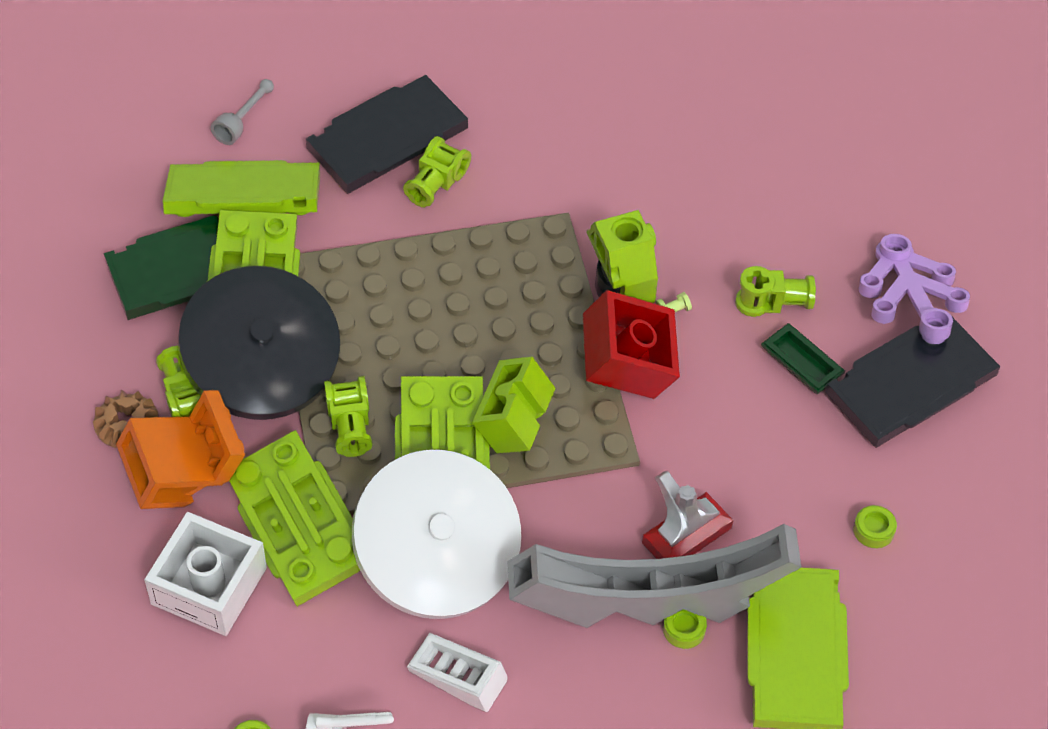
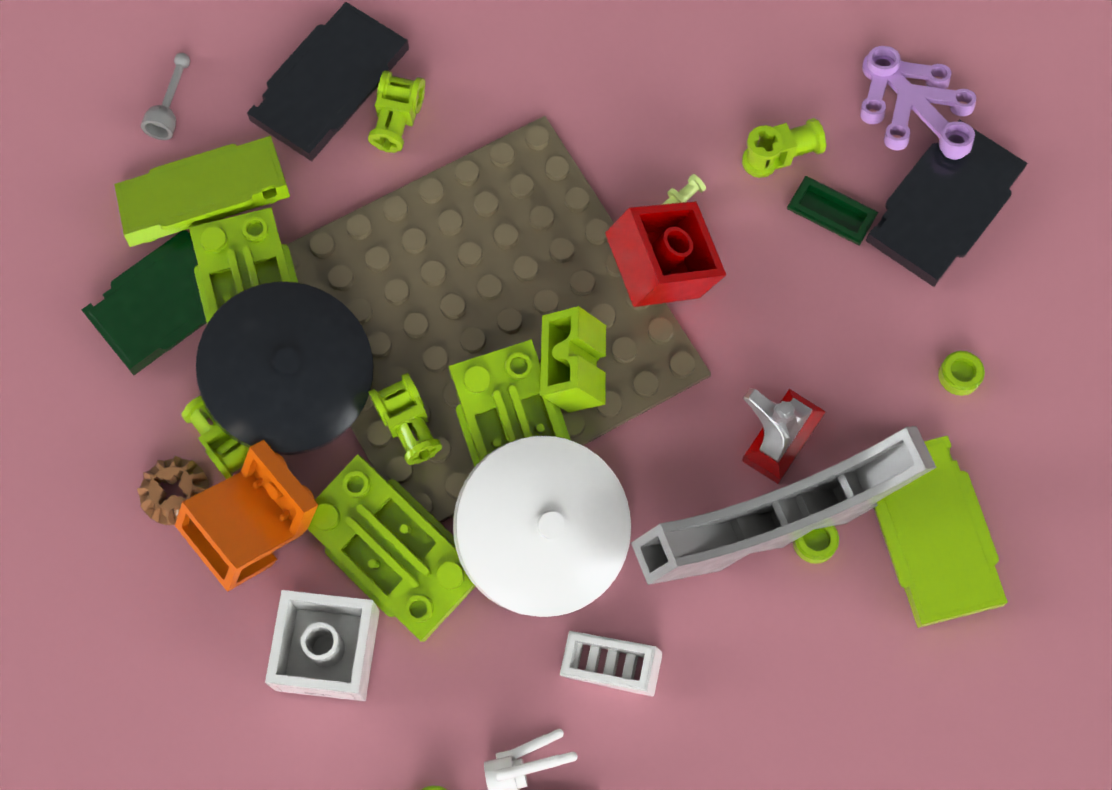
camera: 15 degrees left, 15 degrees up
(625, 256) = (629, 161): lime piece -> none

